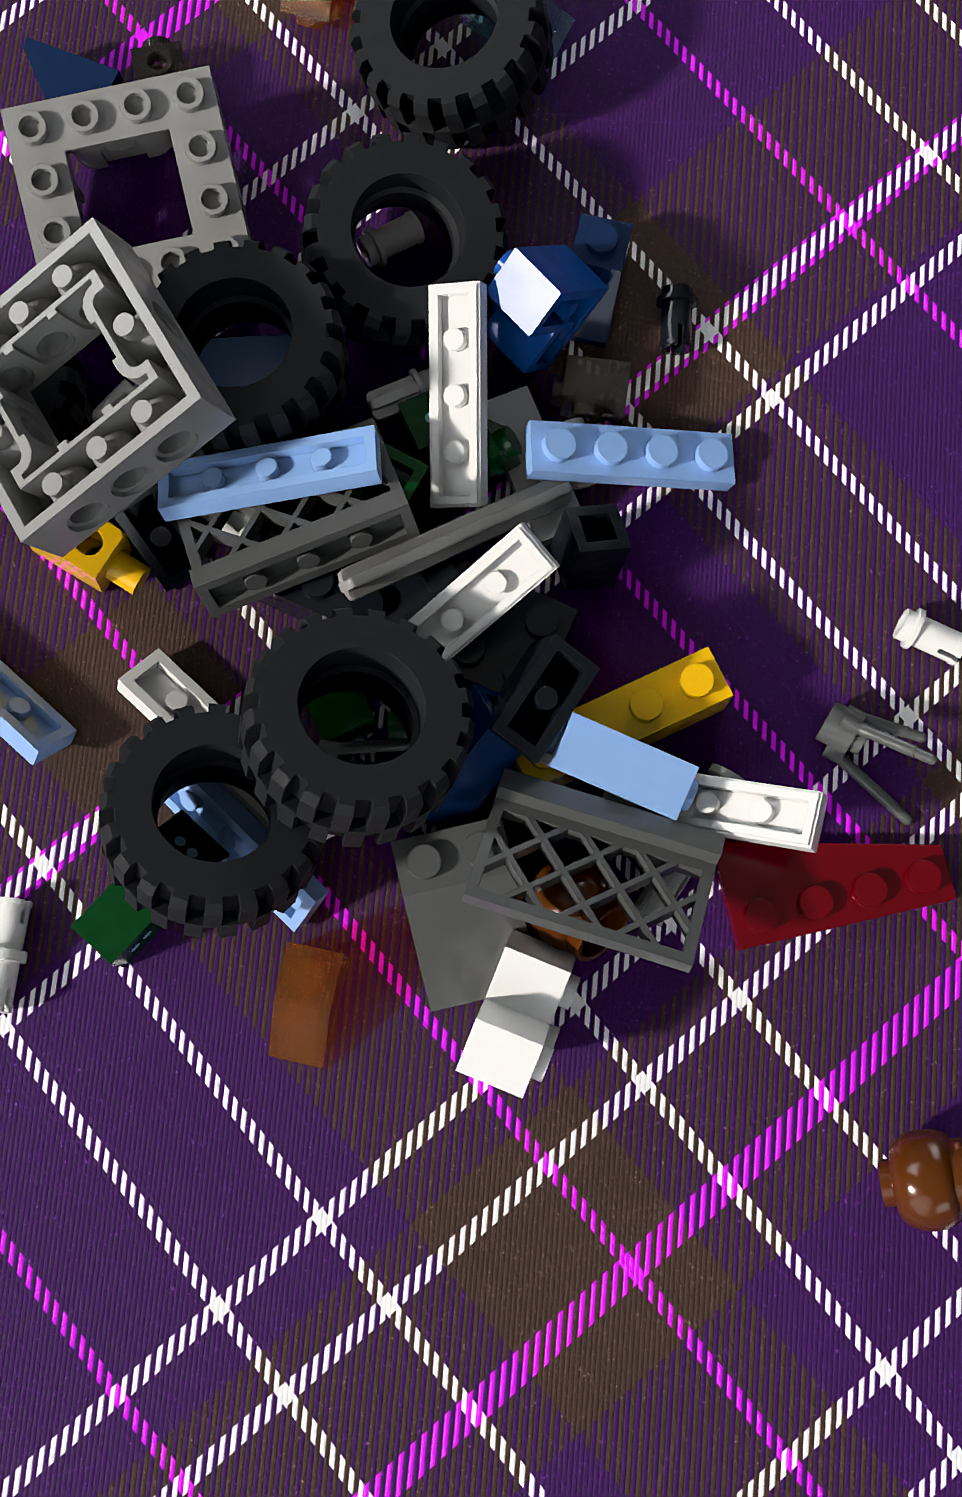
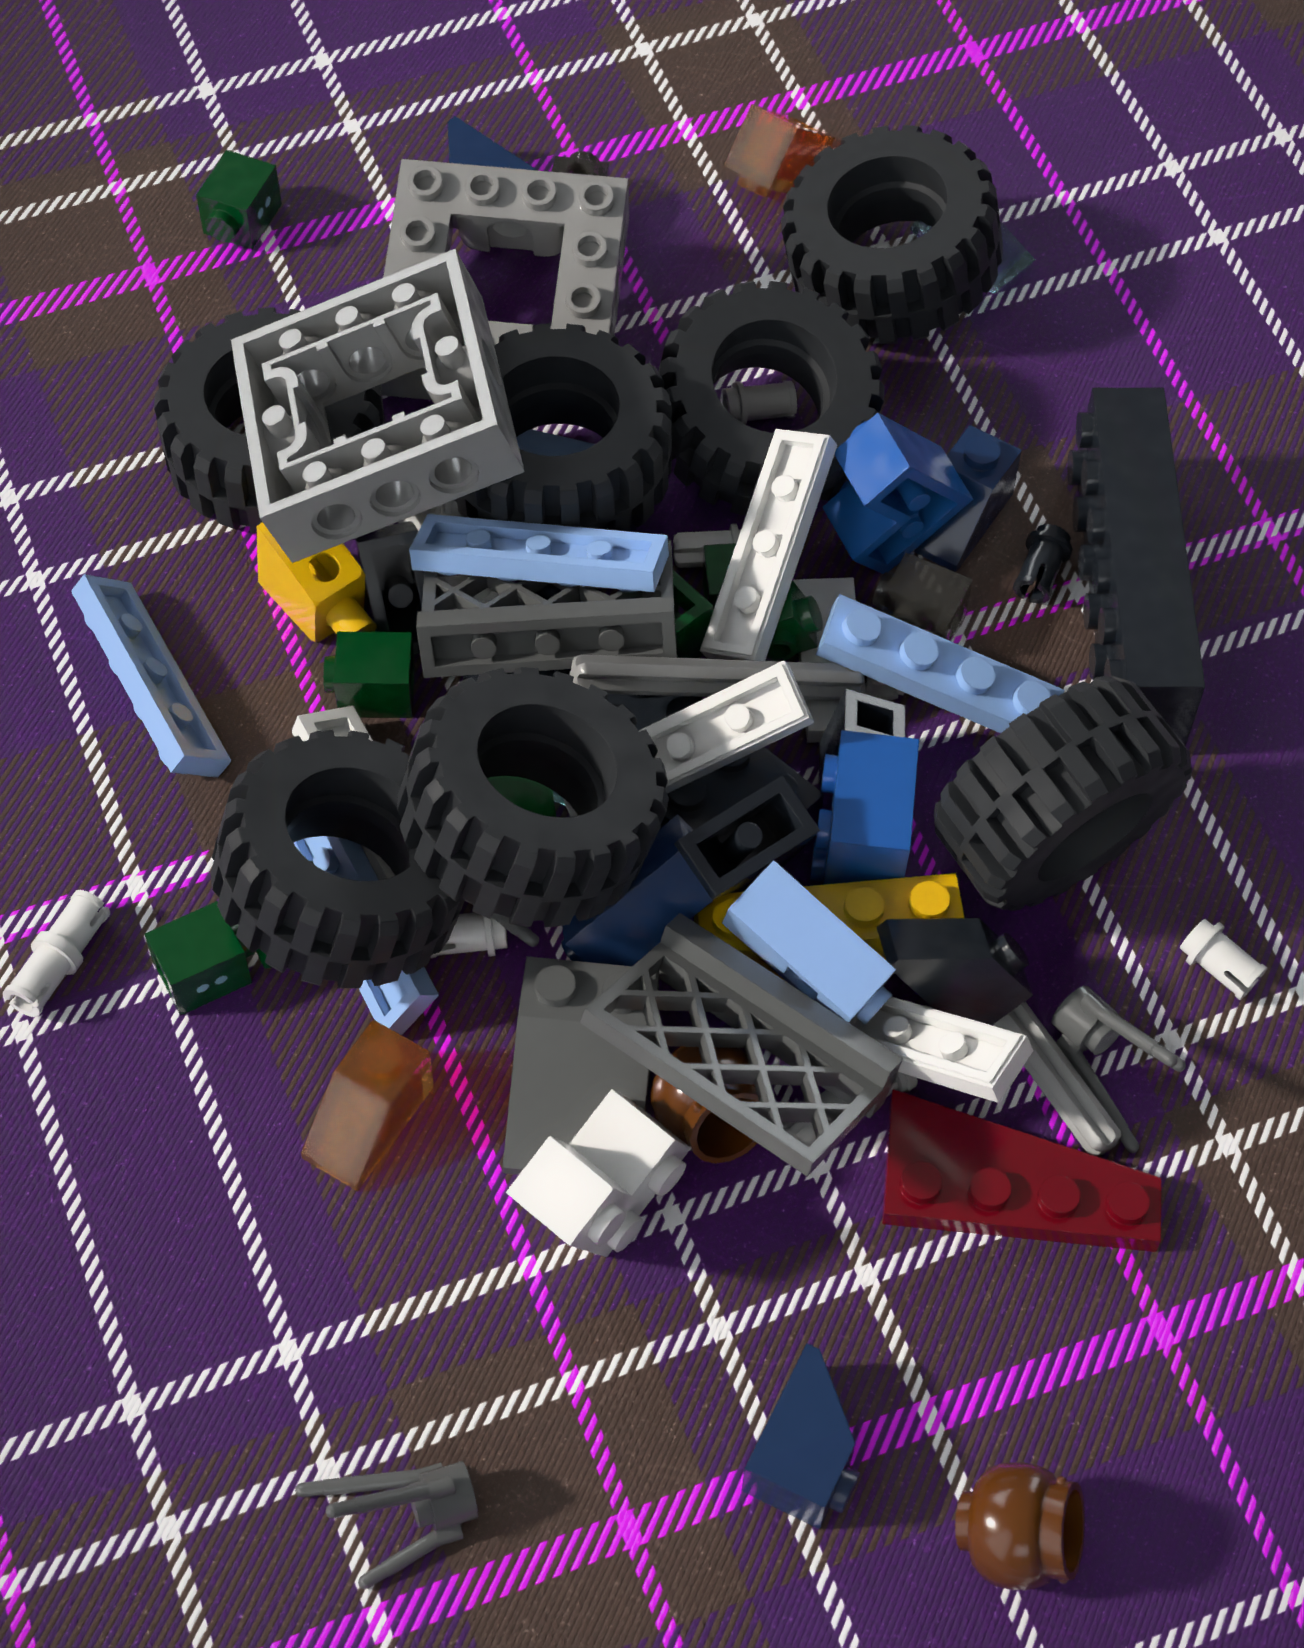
camera: 15 degrees right, 20 degrees down
(163, 613) = (372, 673): none -> dark green brick
(485, 1309) = (437, 1497): none -> dark grey plant
(624, 617) = (871, 810): none -> blue brick
(736, 730) = (958, 965): none -> black slope
(745, 1167) = (804, 1448): none -> dark blue slope
(761, 306) = (1136, 552): none -> black brick
(781, 555) = (1061, 792): none -> black tyre
(827, 778) = (1063, 1084): none -> light grey axle

